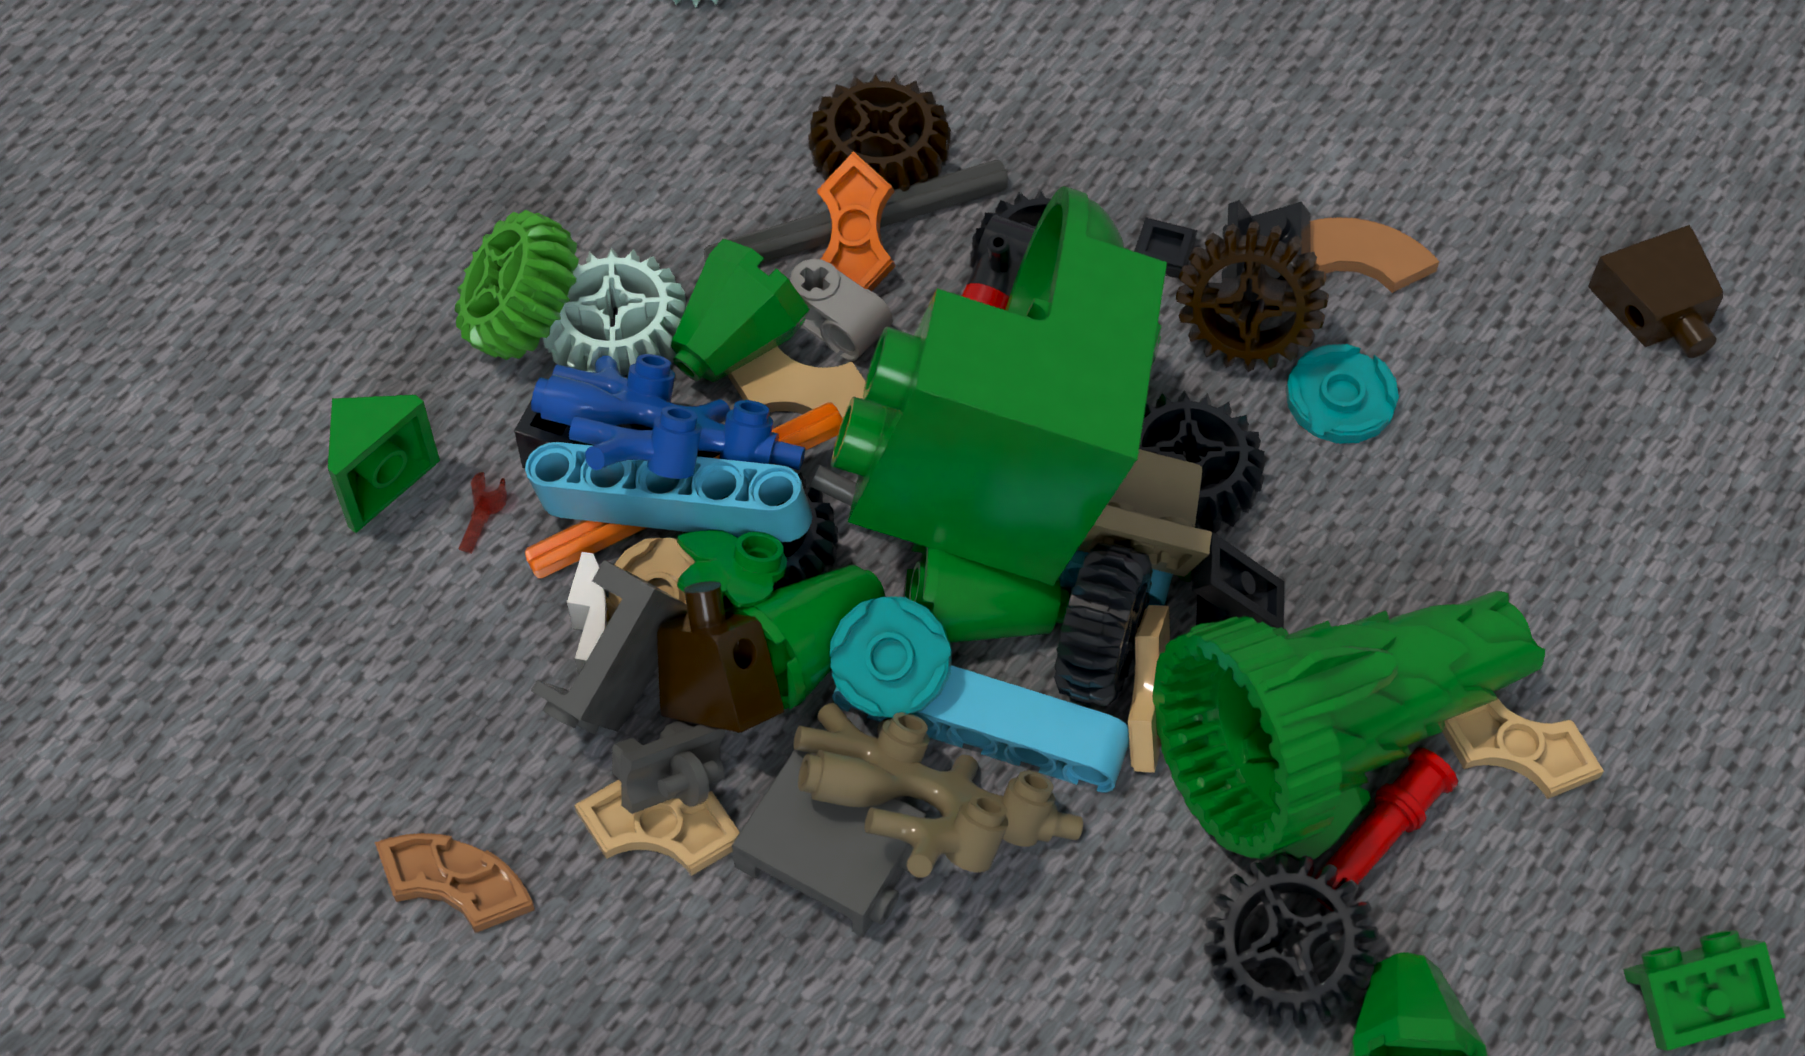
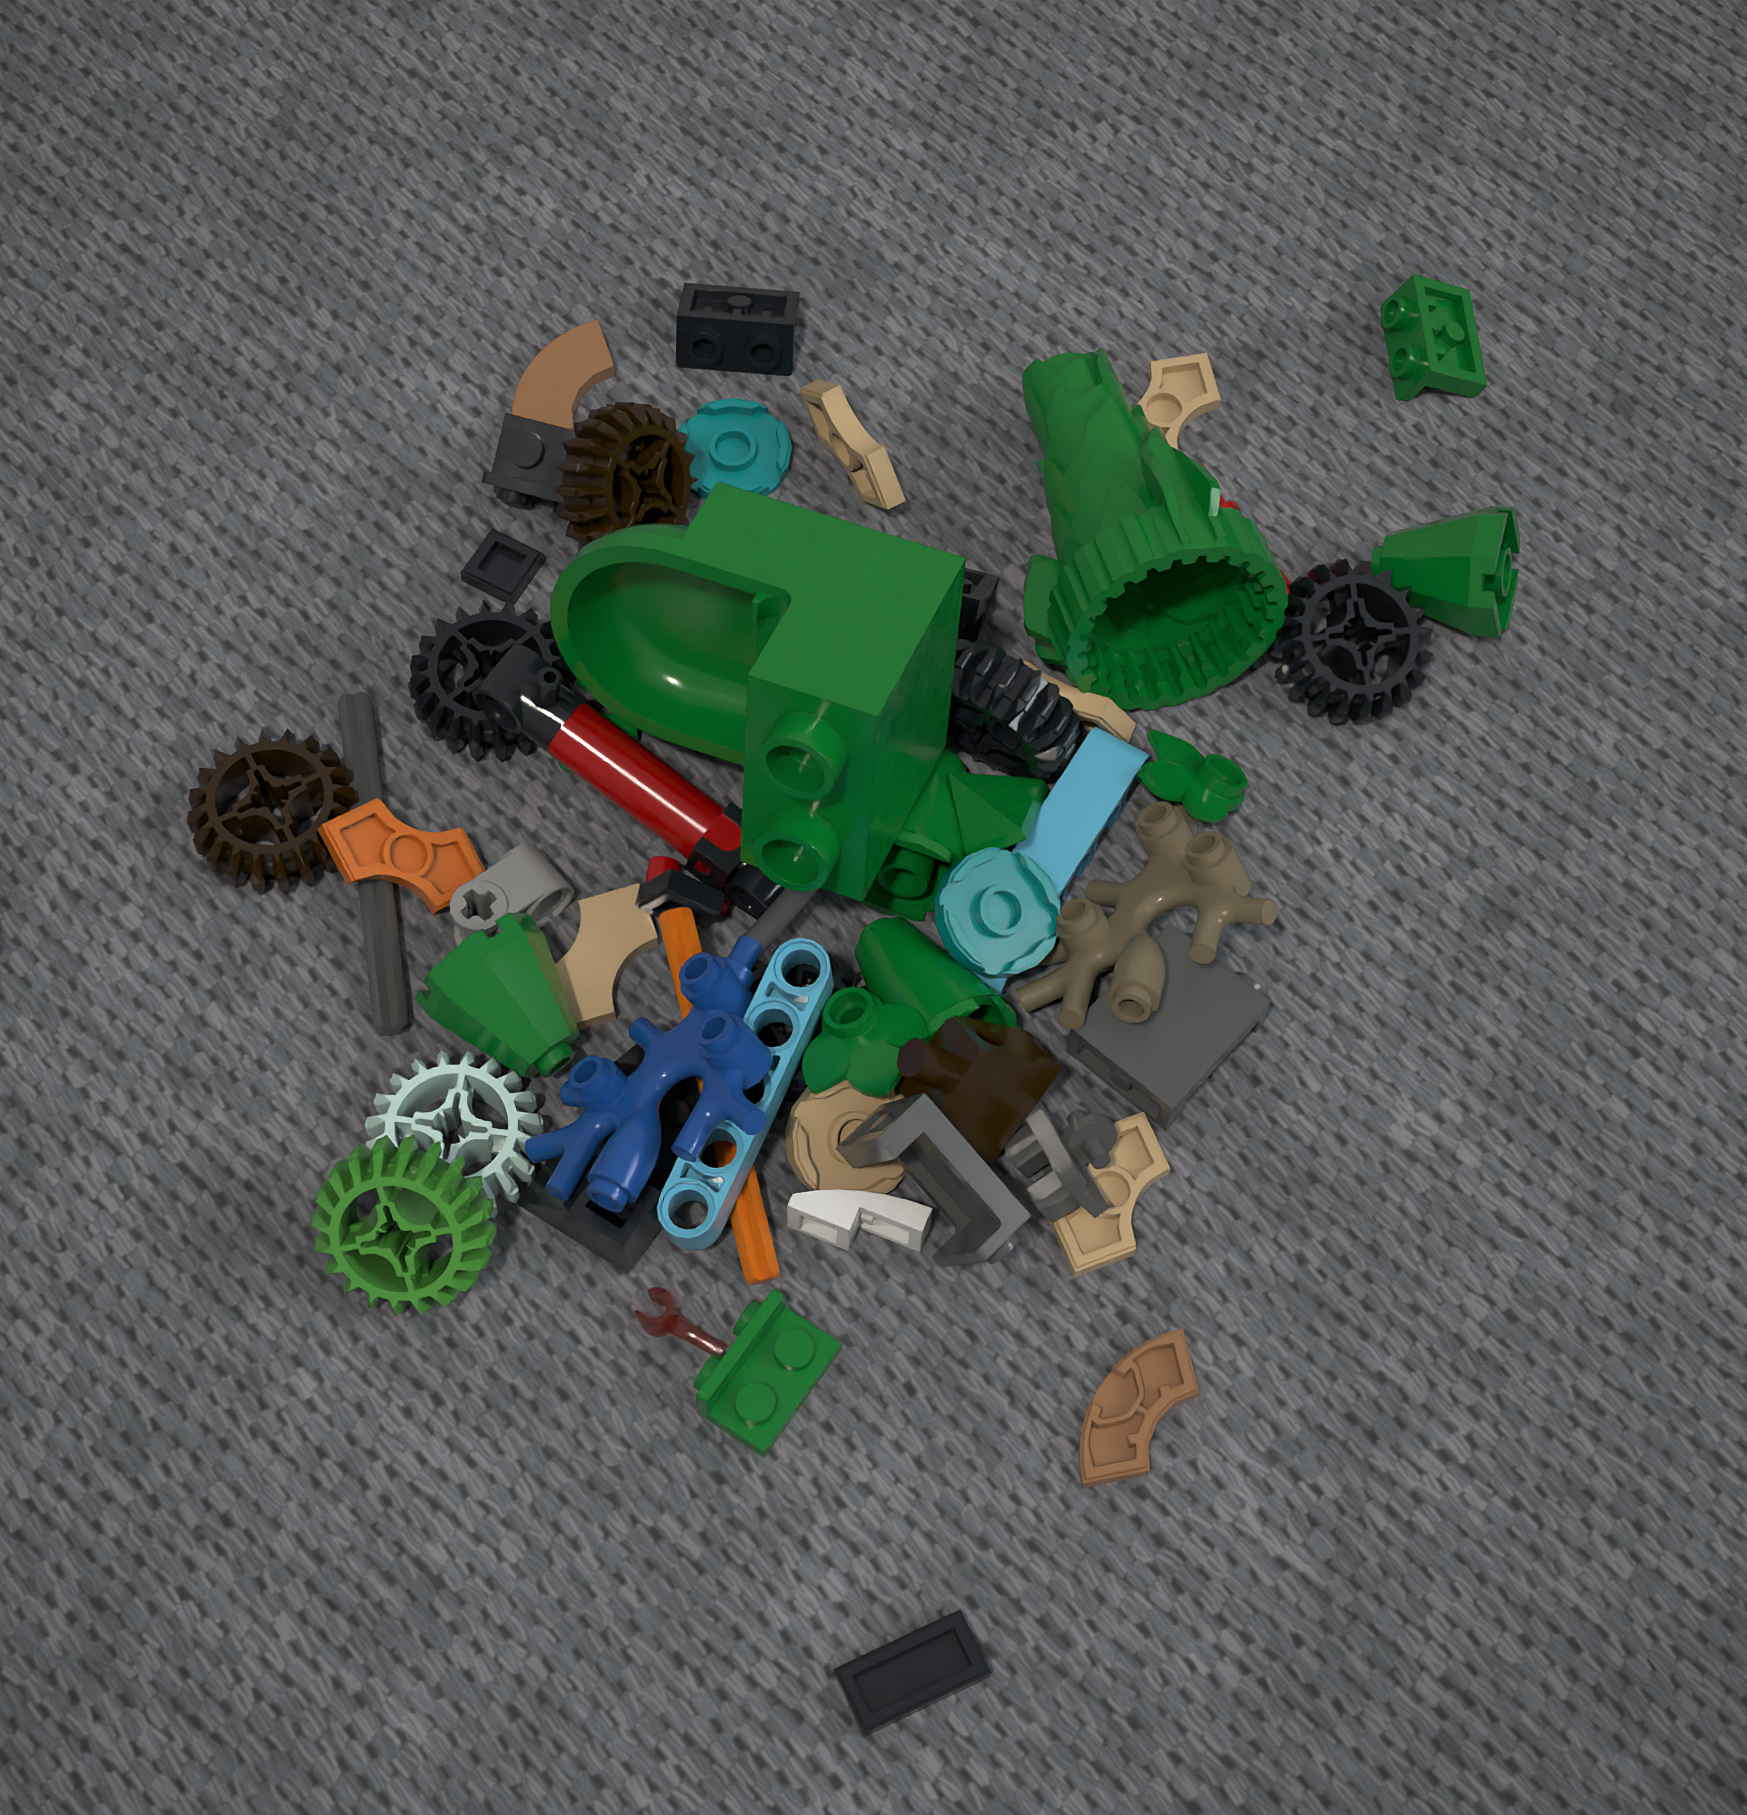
camera: 80 degrees left, 5 degrees up
(196, 739) = (912, 1673): none -> black tile
(377, 452) = (603, 1421): green slope -> none
(445, 577) = (764, 1373): none -> green bracket
(1006, 643) = (995, 808): none -> green slope
(1094, 814) = (1182, 774): none -> green plate
(1369, 473) = (851, 444): none -> tan tile
(1473, 366) = (736, 329): none -> black bracket
(1662, 290) = (692, 139): dark brown torso -> none

